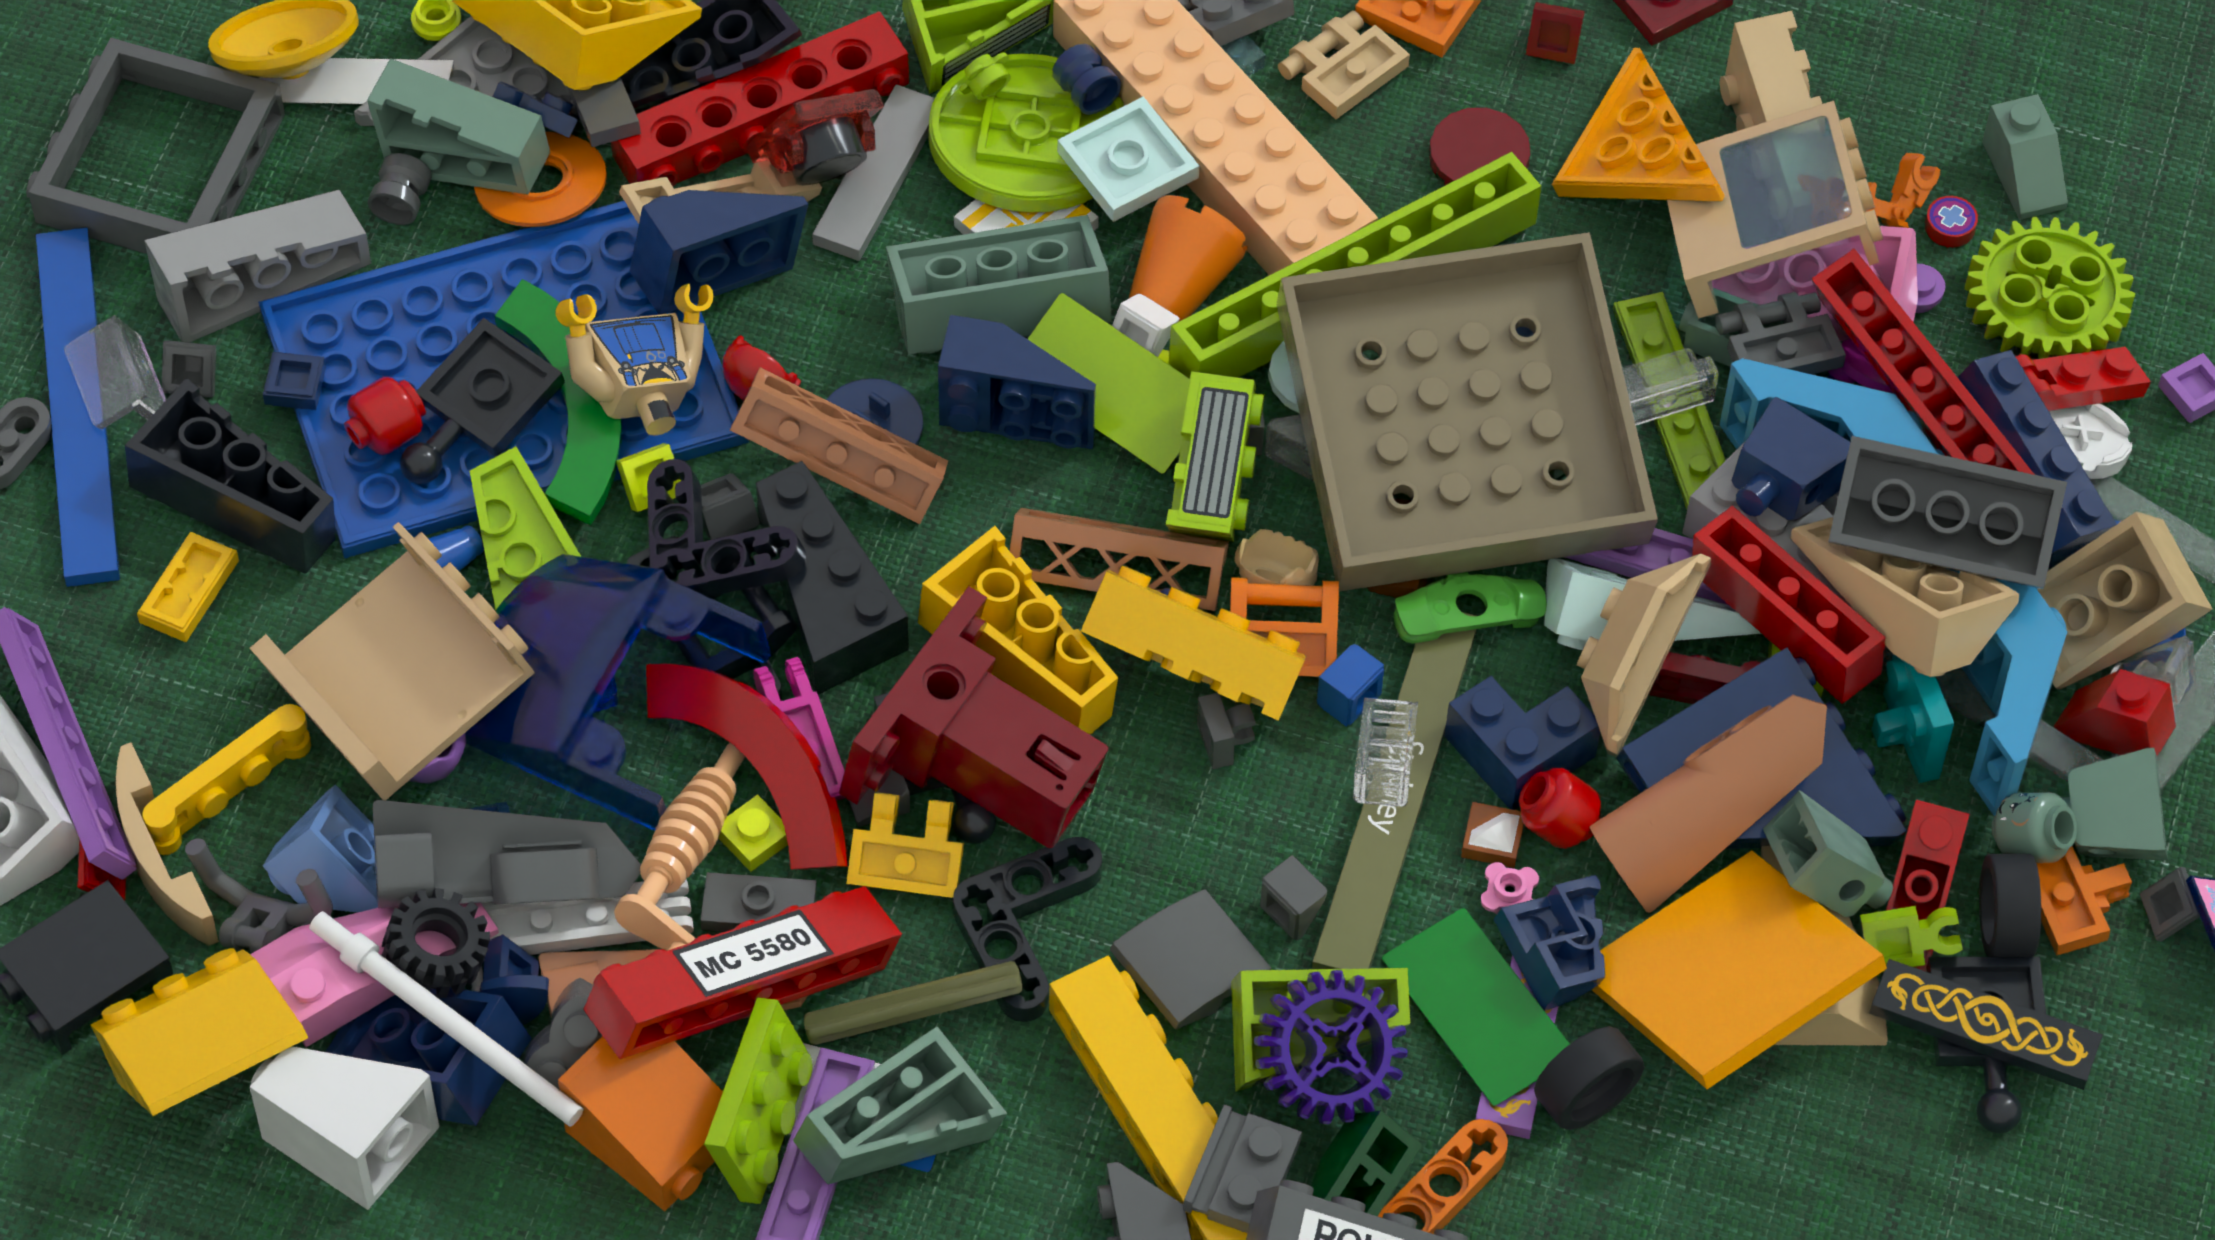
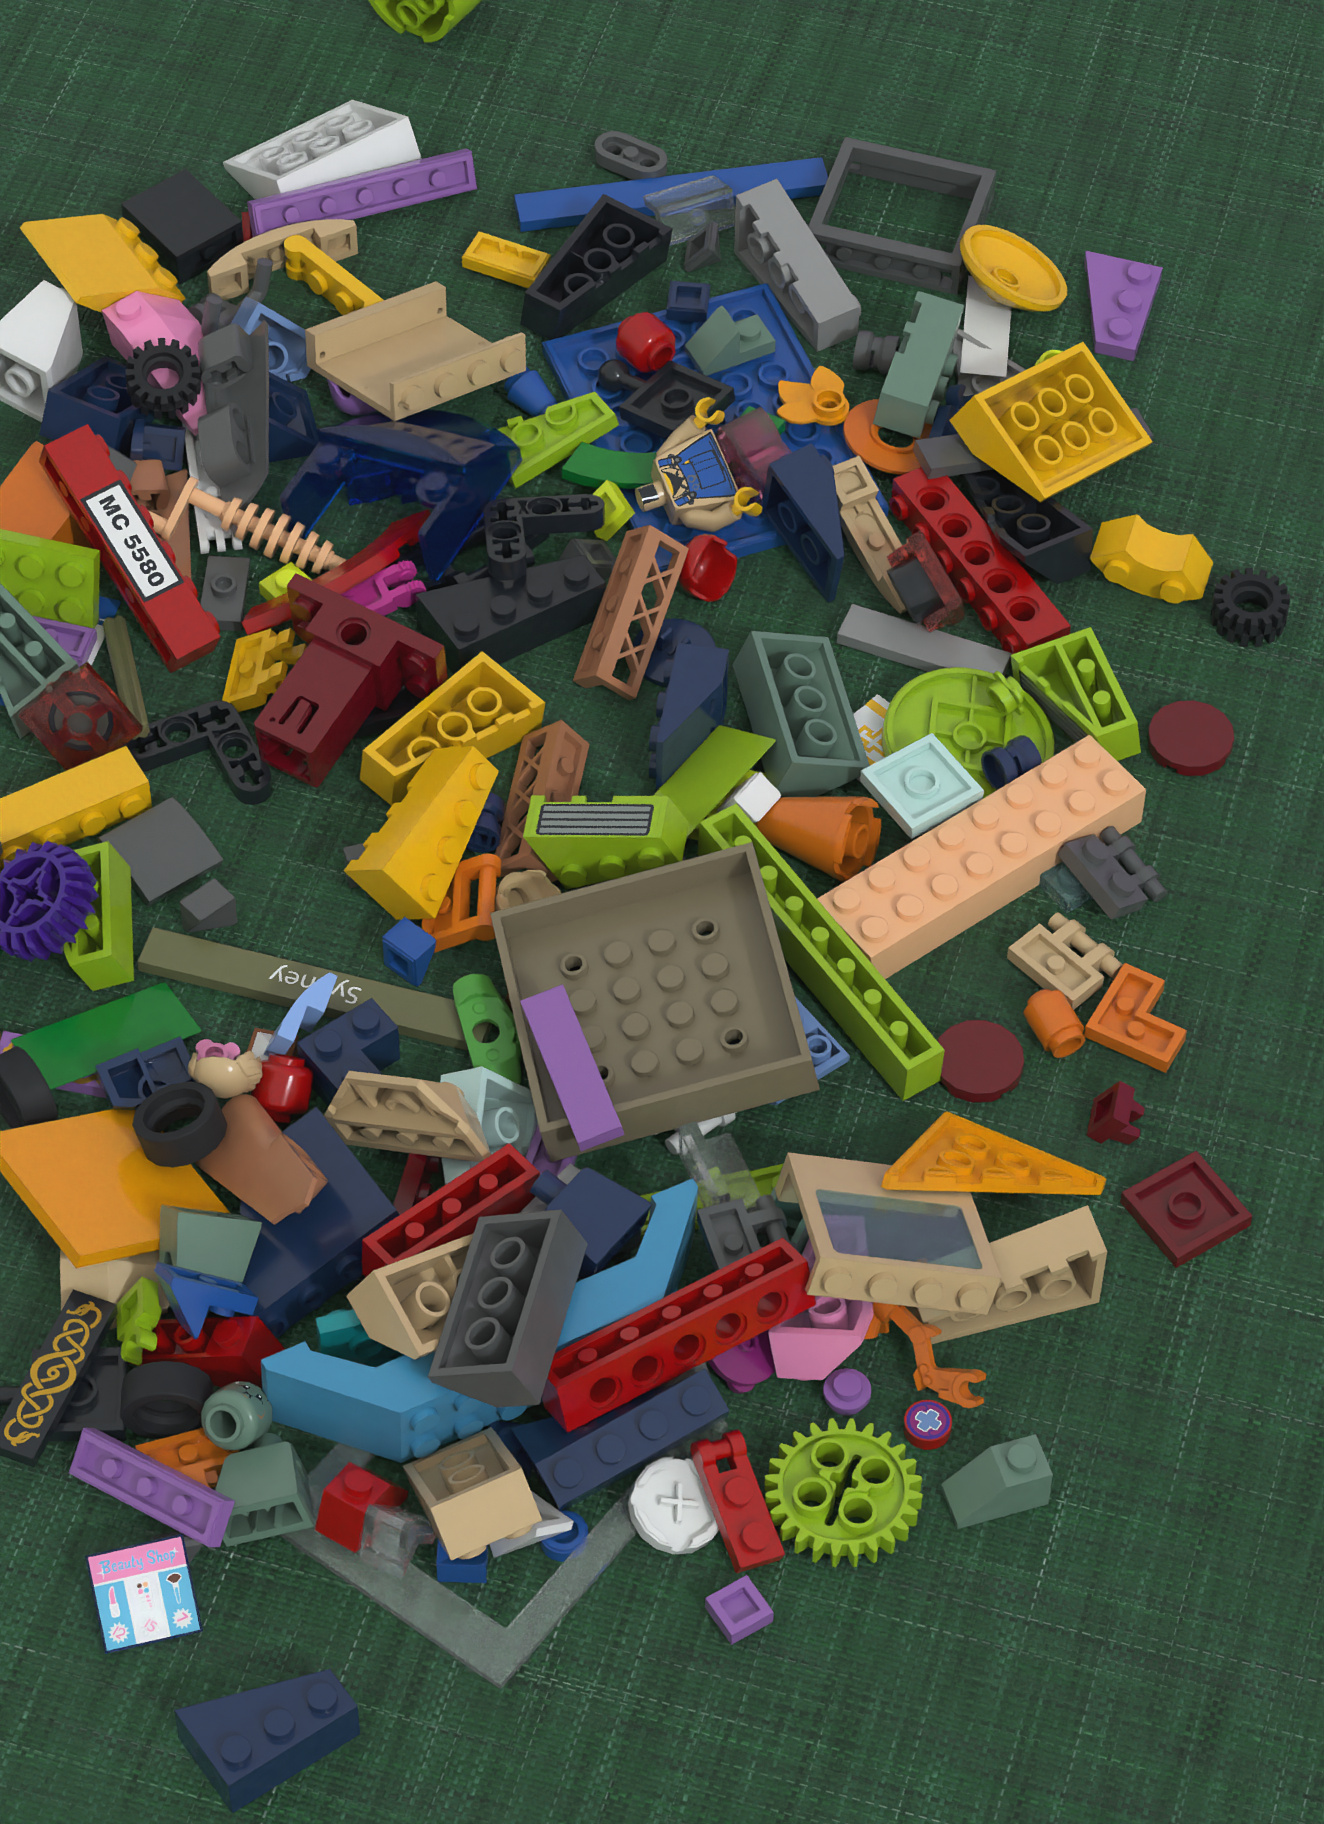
camera: 90 degrees right, 5 degrees down
(363, 955) = (148, 329): white bar -> none
(379, 335) = (727, 343): none -> sand green slope
(478, 255) = (814, 402): none -> light orange plate
(611, 281) = (749, 448): none -> clear pink brick
(1012, 1029) = (80, 718): none -> clear red piece
(1380, 781) = (330, 954): clear slope -> none
(1434, 75) = (1054, 1022): none -> orange brick
(1476, 788) = (303, 1014): none -> light blue slope
(1575, 842) = (227, 1076): none -> tan hair
(1582, 475) = (572, 1068): none -> medium lavender tile
(1630, 852) = (185, 1144): none -> black tyre
(1898, 848) = (195, 1293): none -> blue slope
(2126, 915) = (151, 1487): none -> medium lavender tile

